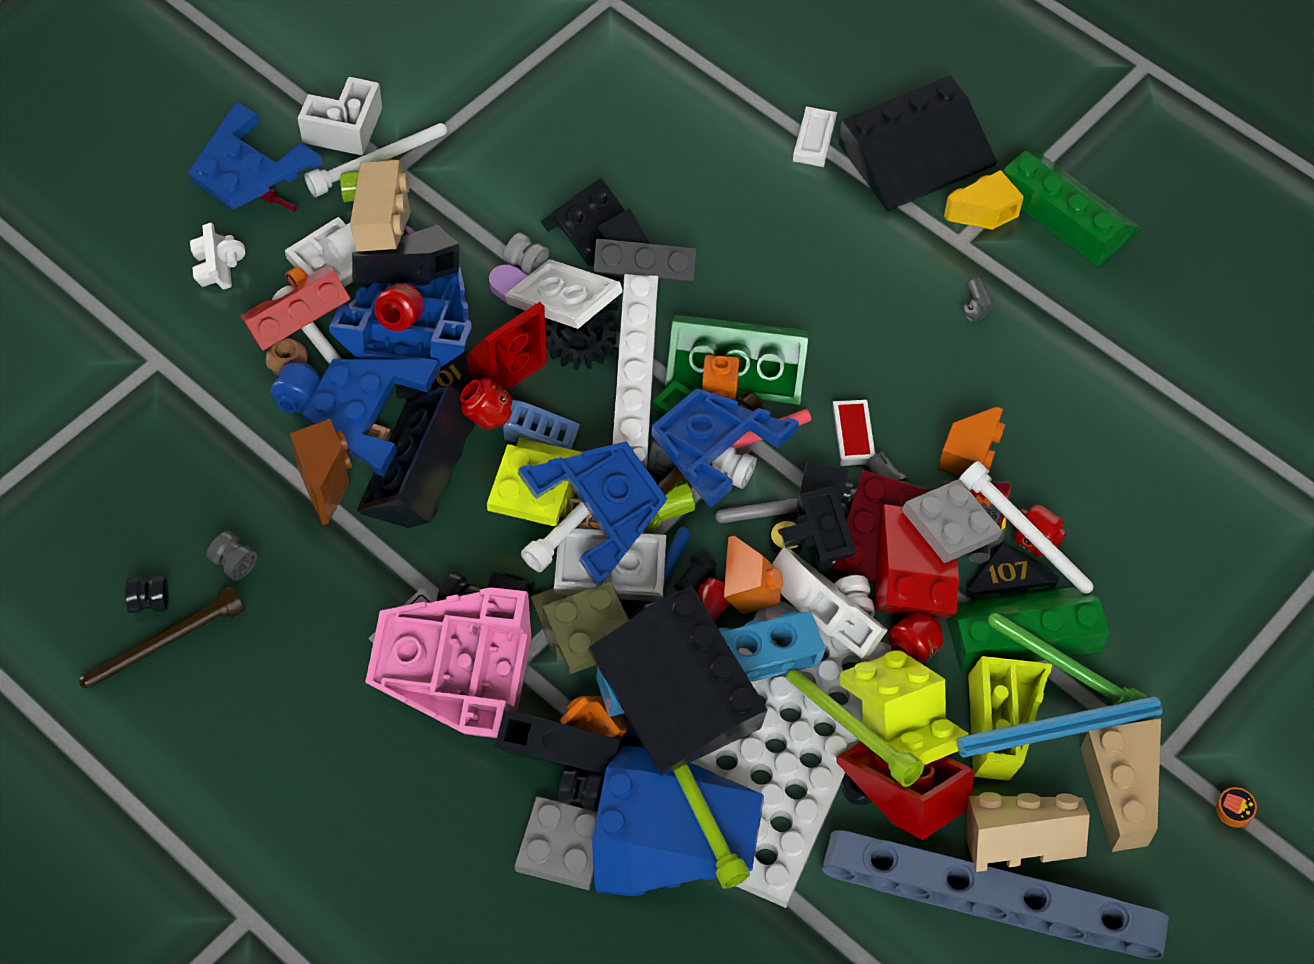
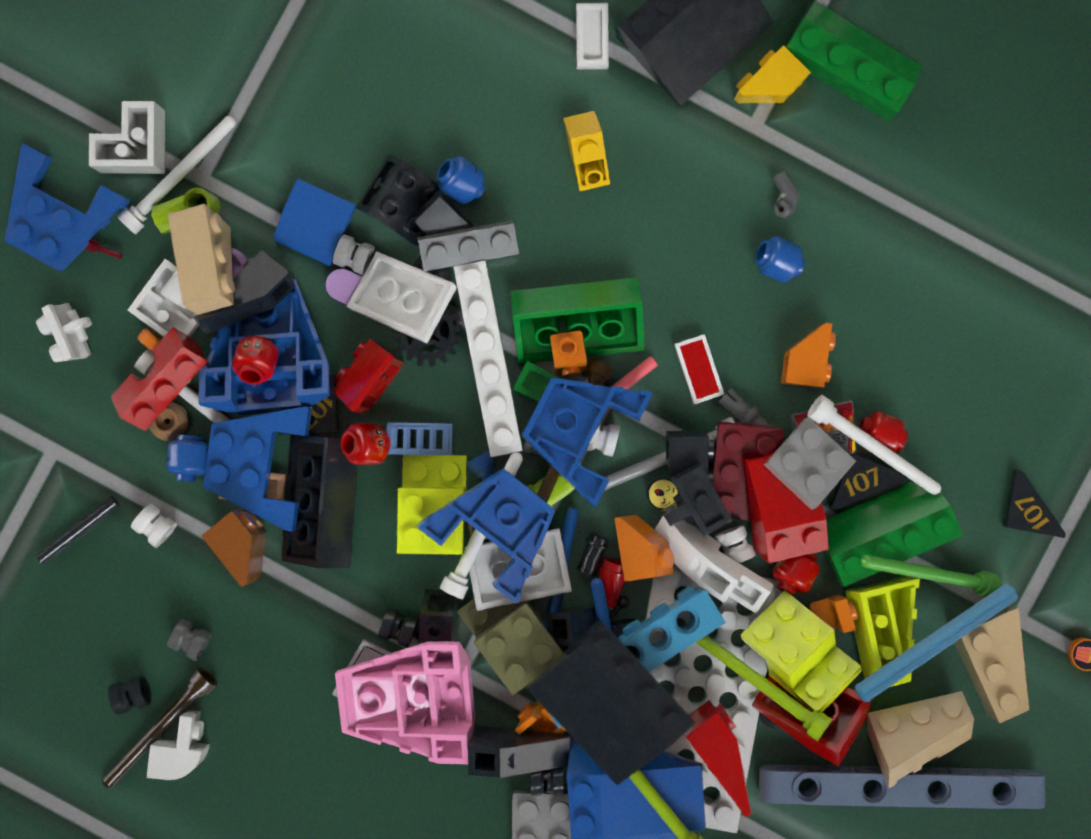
camera: 10 degrees left, 30 degrees up
(154, 433) = (77, 530): none -> black bar
(178, 669) = (178, 757): none -> white brick
(236, 441) = (153, 525): none -> white wheel
(493, 220) = (313, 222): none -> blue slope
(654, 214) = (460, 180): none -> blue head
(782, 767) = (719, 750): none -> red slope
(785, 221) = (587, 150): none -> yellow slope
(958, 688) = (836, 612): none -> orange bracket
(960, 349) = (779, 259): none -> blue head
(1191, 646) = (1027, 509): none -> black tile

